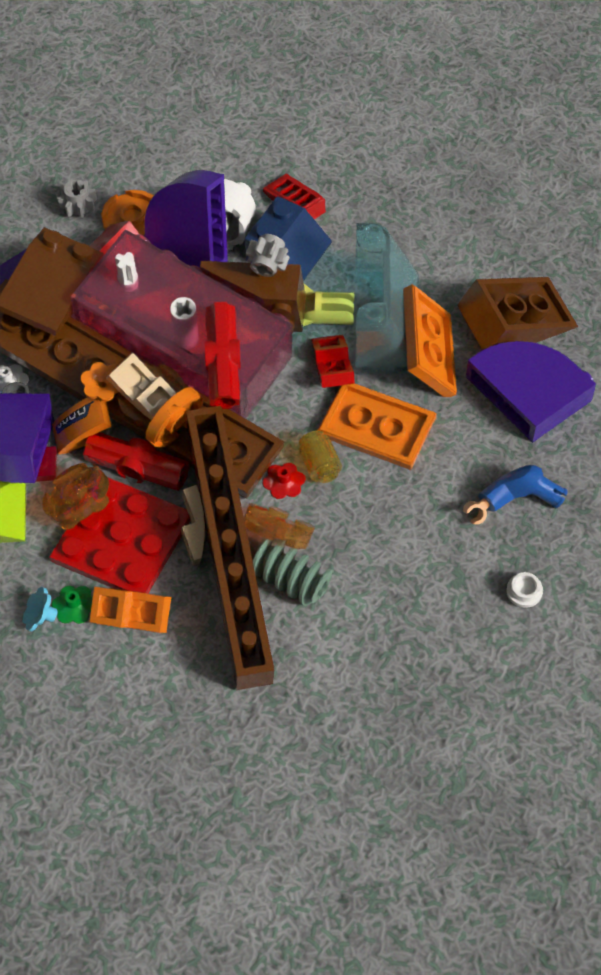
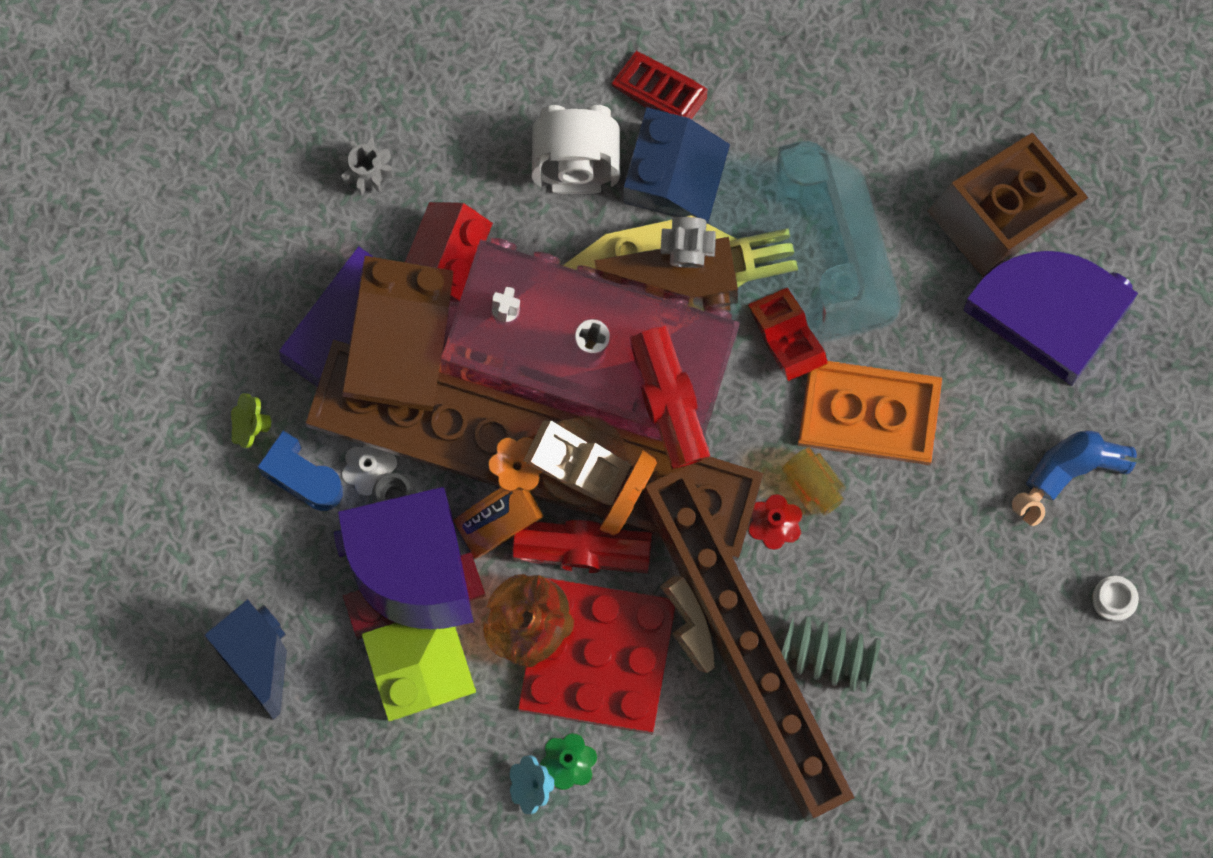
camera: 15 degrees left, 15 degrees up
(116, 209) = (457, 179): orange tile -> none
(130, 609) = (643, 753): orange slope -> none
(190, 218) = (546, 187): dark purple brick -> none
(273, 524) = (793, 600): clear orange plate -> none
(429, 341) = (909, 281): orange tile -> none

